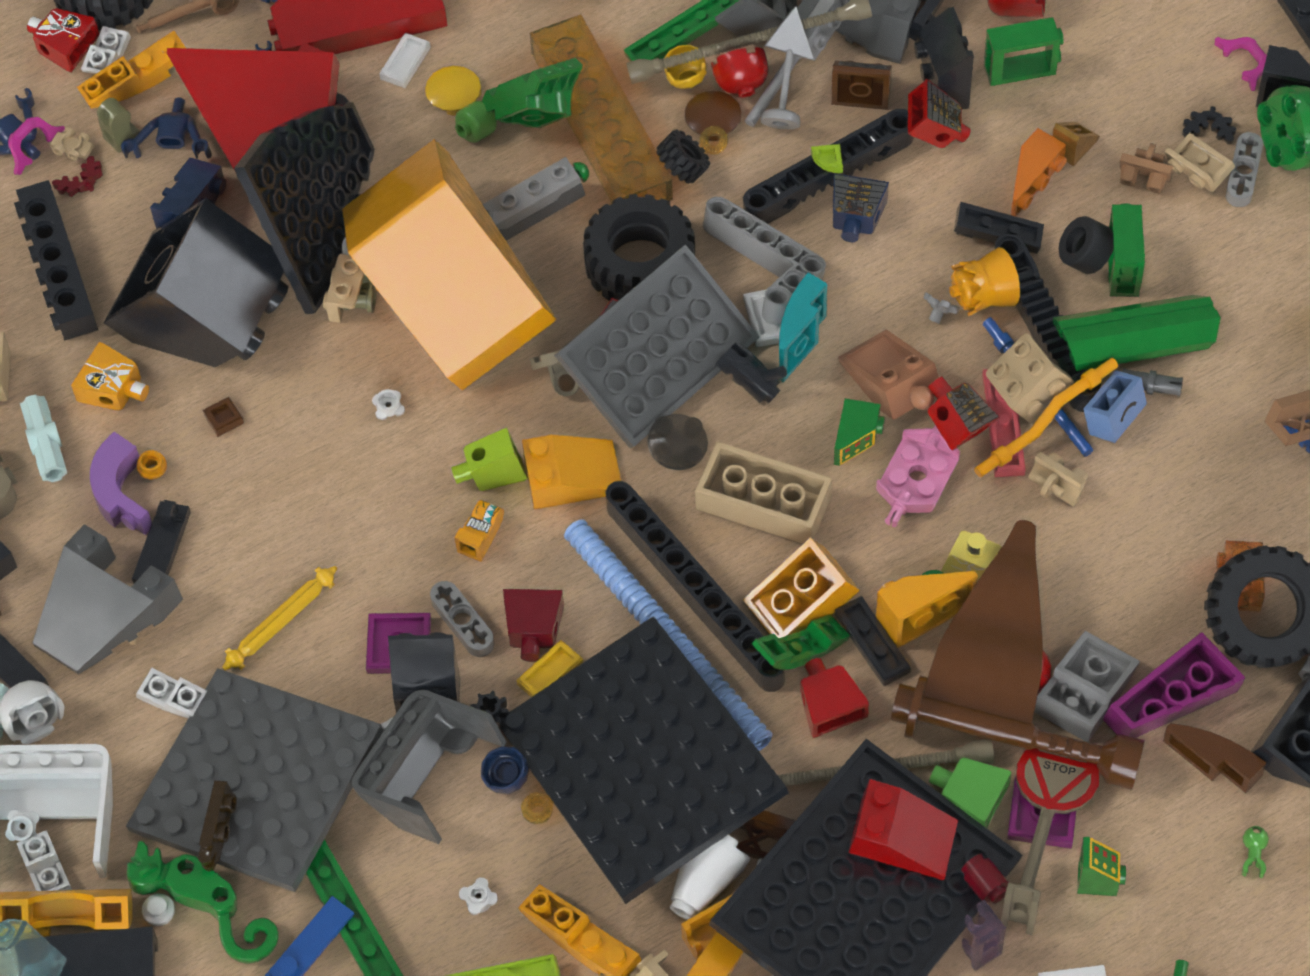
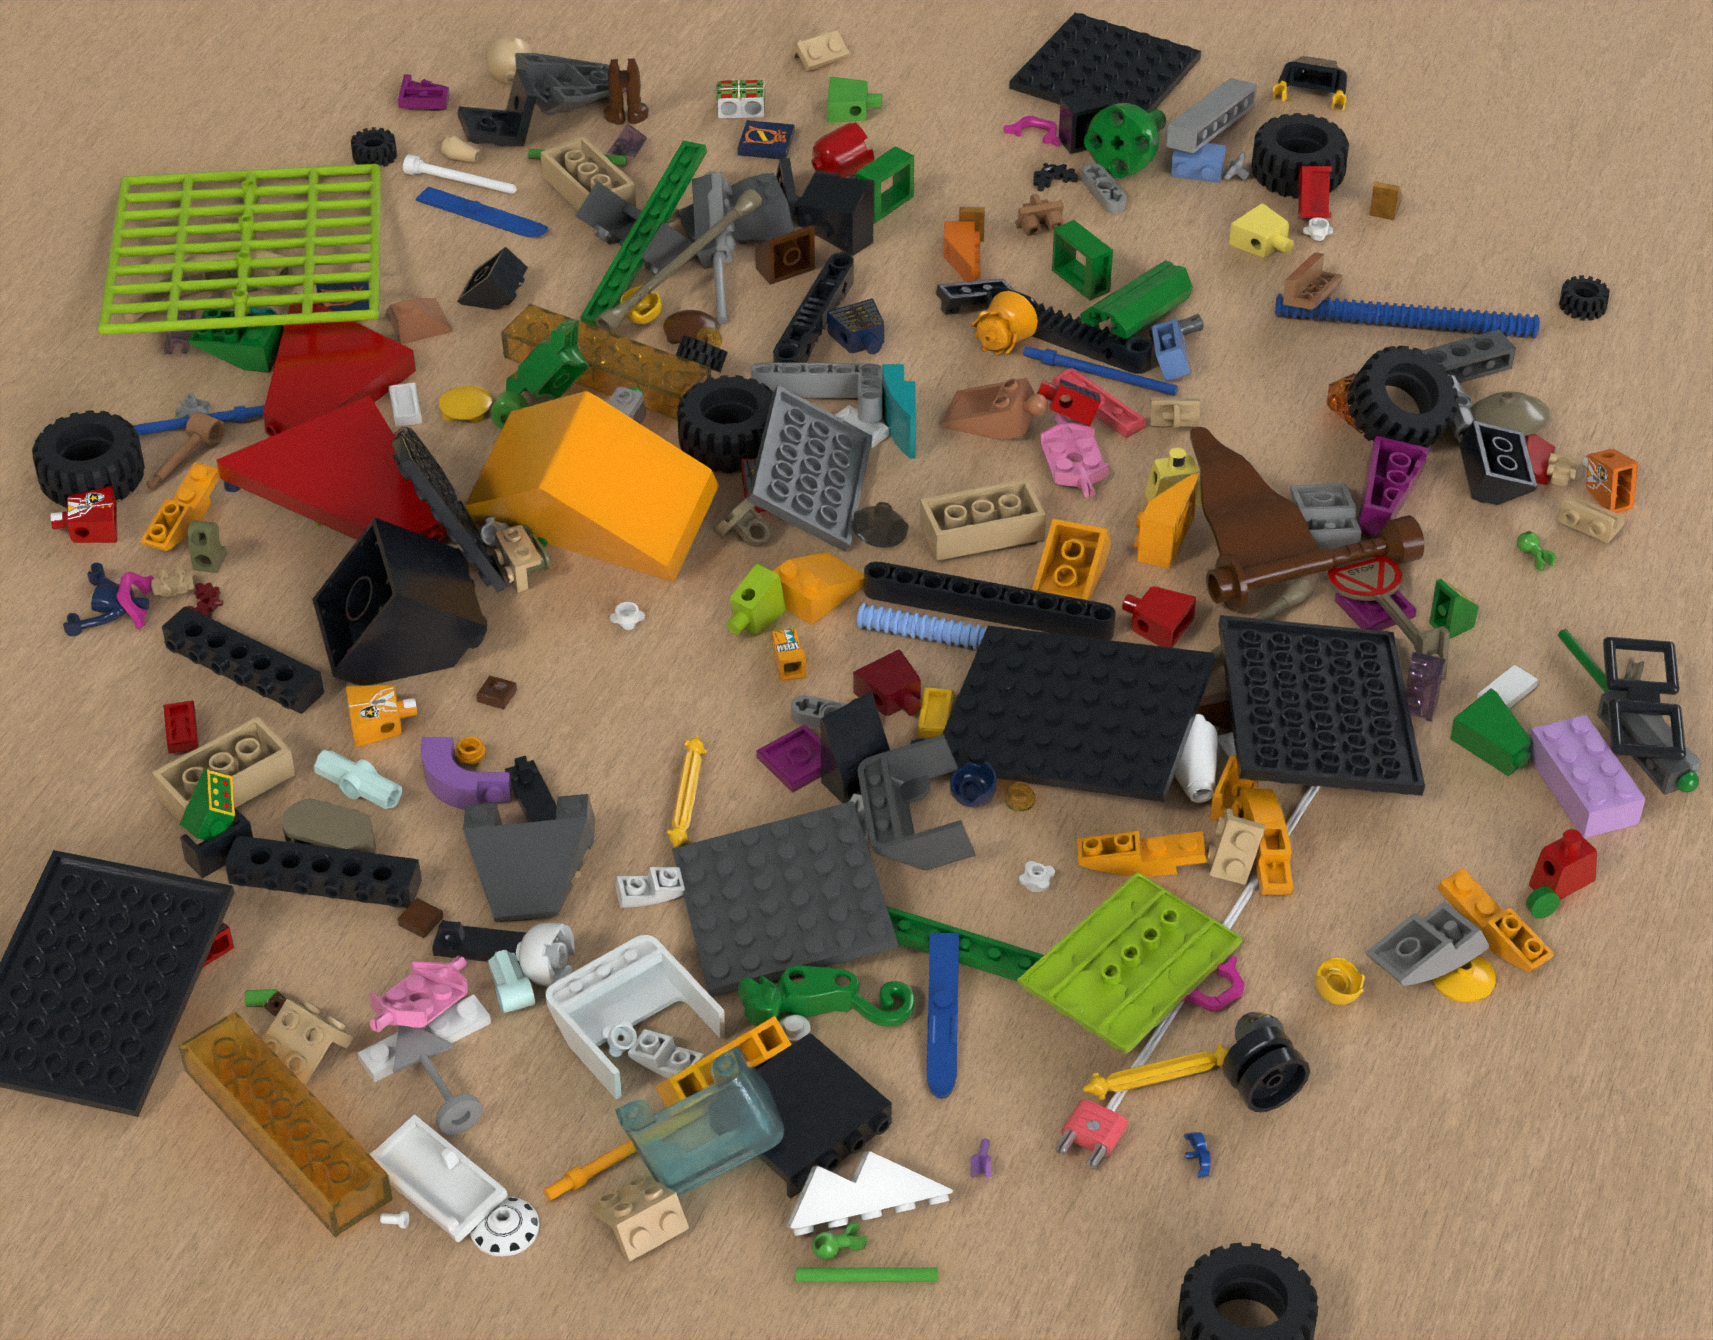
camera: 40 degrees left, 15 degrees down
(108, 48) = (137, 510): white slope -> none
(171, 132) = (256, 534): dark blue piece -> none
(194, 183) = (319, 557): dark blue wedge -> none
(216, 824) = (798, 933): dark brown hinge -> none
(741, 71) = (688, 287): red cylinder -> none
(751, 373) = (894, 458): black piece -> none
(790, 39) = (749, 300): light grey piece -> none
(800, 647) = (1110, 588): green slope -> none
(828, 157) = (814, 302): lime tile -> none
(857, 429) = (1002, 452): green slope -> none
(872, 641) = (1149, 570): black tile -> none
(903, 831) = (1304, 650): red slope -> none
(935, 116) = (874, 252): red torso -> none
(940, 308) = (983, 356): light grey plant -> none
(973, 787) = (1318, 607): bright green torso -> none
(985, 879) = (1391, 650): dark red brick -> none
(1027, 378) = (1096, 359): tan bracket -> none
(1086, 245) = (1039, 265): black tyre -> none
(1088, 380) = (1125, 413): light orange bar -> none
(1199, 162) = (1075, 194): tan bracket -> none
(1215, 755) = (1453, 508): reddish brown slope -> none

